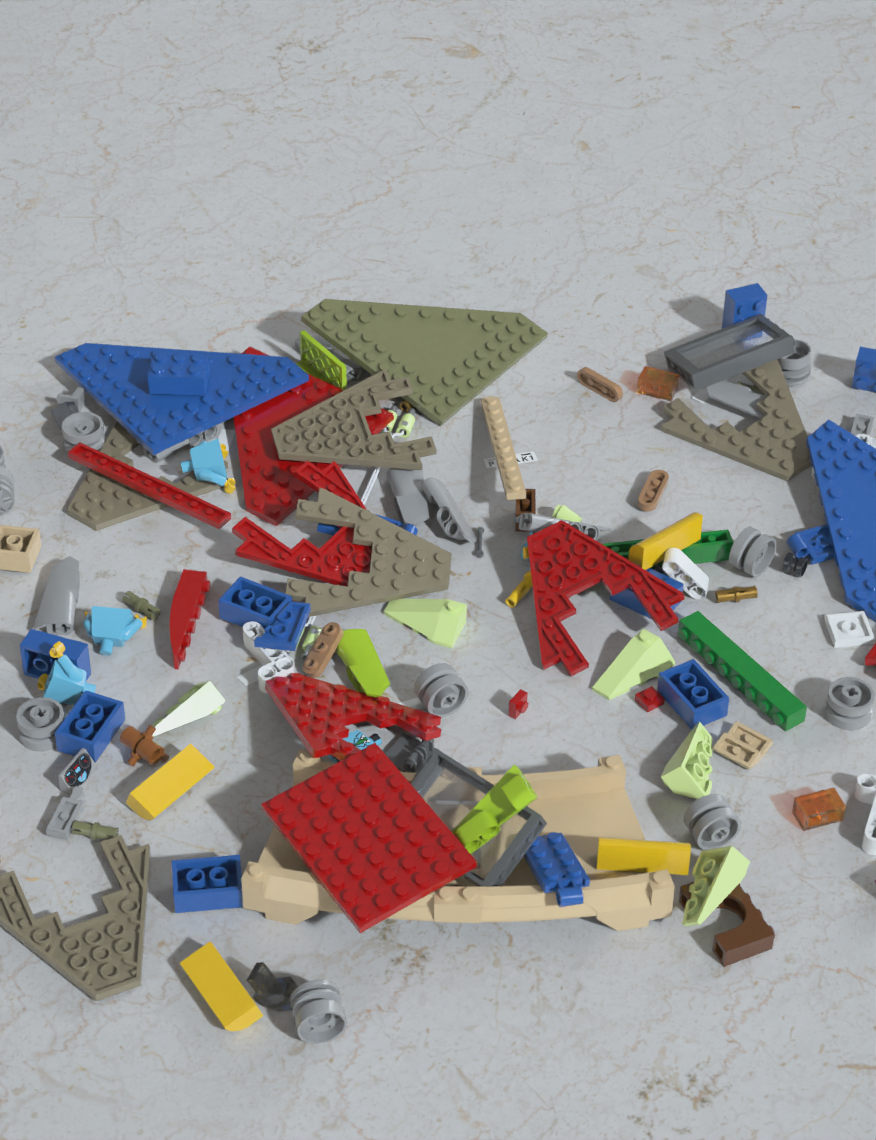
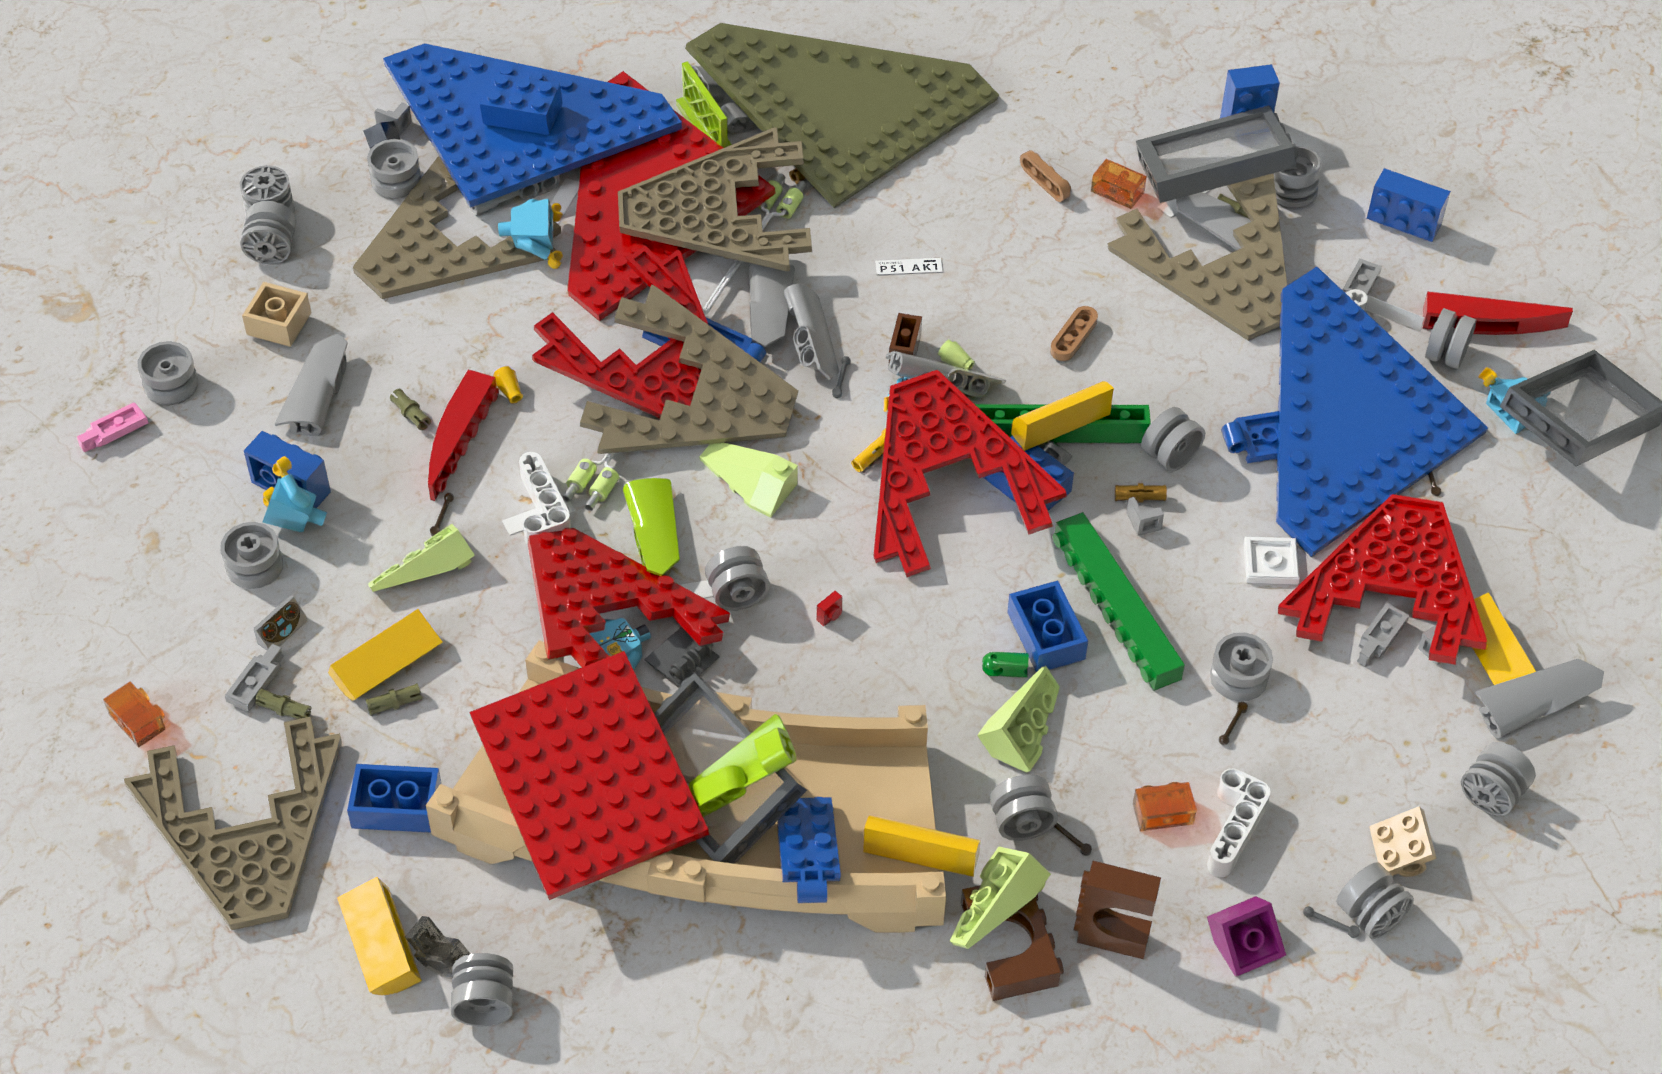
camera: 10 degrees right, 10 degrees up
(90, 725) = (308, 565): blue brick -> none
(111, 627) = (366, 435): medium azure torso -> none
(142, 745) = (363, 601): dark orange pin -> none
(150, 485) = (455, 249): red plate -> none
(185, 814) = (393, 699): none -> olive pin
(189, 665) = (448, 497): none -> dark brown hinge
(217, 577) = (508, 383): none -> yellow cone
(251, 602) = (545, 429): blue brick -> none
(287, 629) = (571, 469): blue wing -> none
(323, 650) = (610, 501): medium nougat plate -> none
(503, 448) = (898, 253): tan plate -> none
(639, 661) = (992, 571): yellowish green wedge -> none
(649, 699) = (995, 623): red plate -> none
(667, 726) = (1006, 664): none -> green piece
(682, 569) = (1081, 458): white beam -> none
(743, 745) = (1094, 704): tan slope -> none
(744, 612) = (1144, 518): none -> light grey panel
(764, 848) = (1085, 849): none -> dark brown hinge
(792, 563) = (1224, 461): black wheel -> none
(801, 859) = (1118, 888): none -> reddish brown arch
(856, 734) = (1241, 708): none -> dark brown hinge

